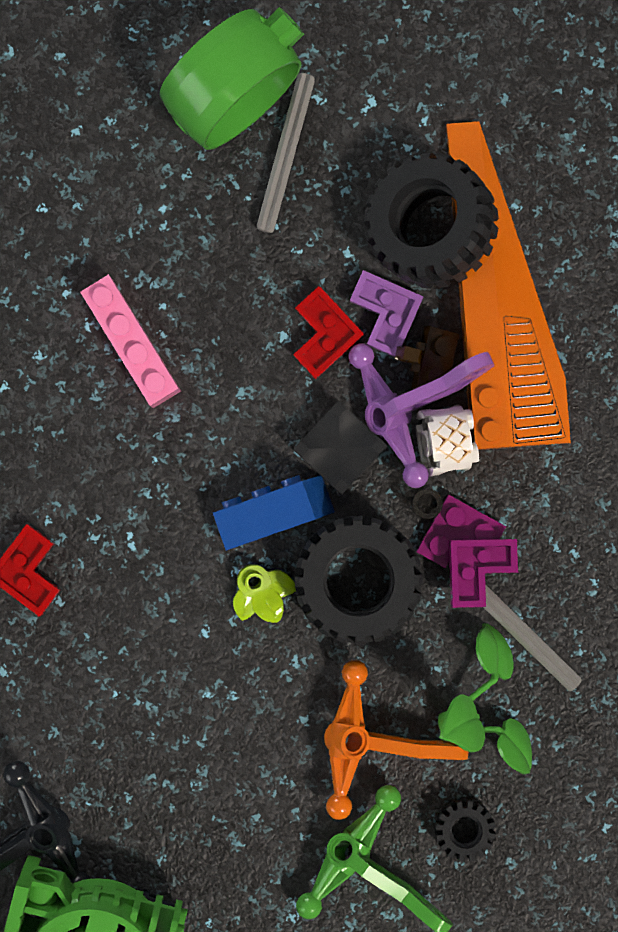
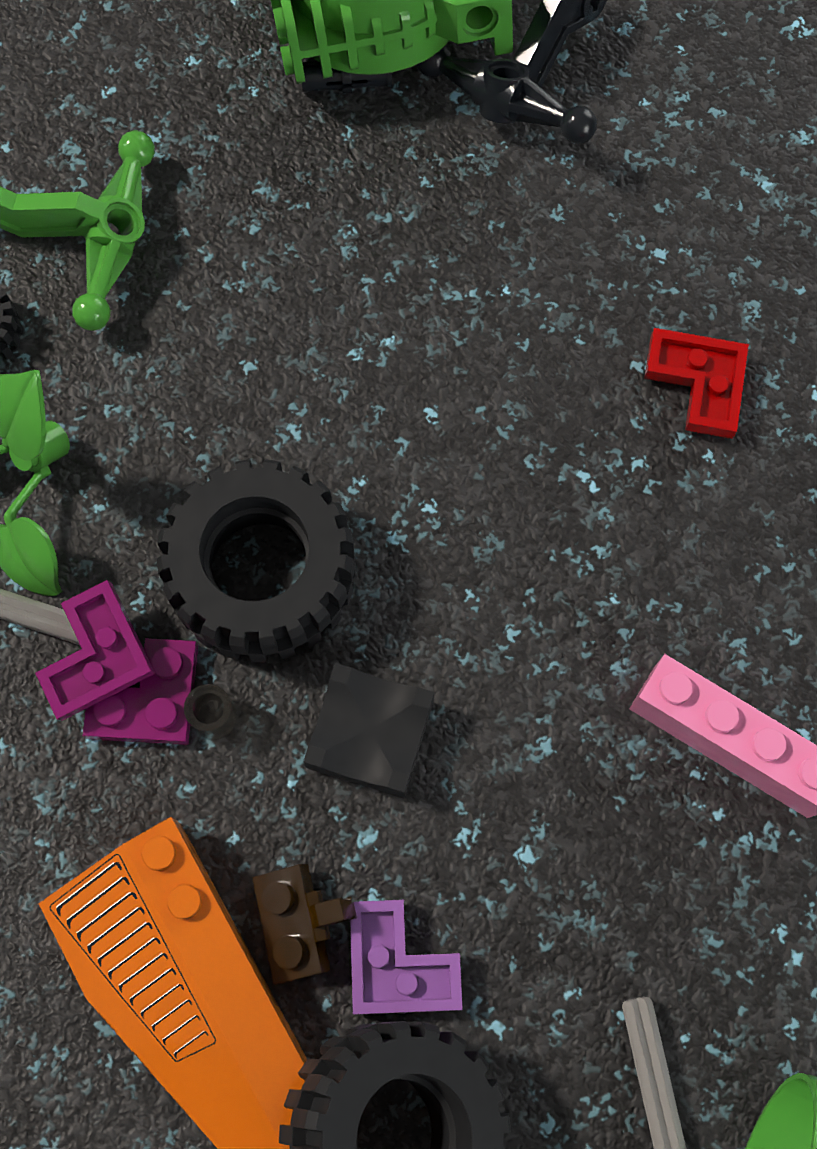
camera: 155 degrees right, 15 degrees down
(265, 597) = (377, 486): lime plate -> none
(272, 510) = (417, 598): blue wedge -> none
(333, 332) = (457, 890): red plate -> none
(350, 722) = (170, 359): orange piece -> none
(391, 414) = (319, 813): medium lavender piece -> none
(446, 439) = (220, 813): white brick -> none

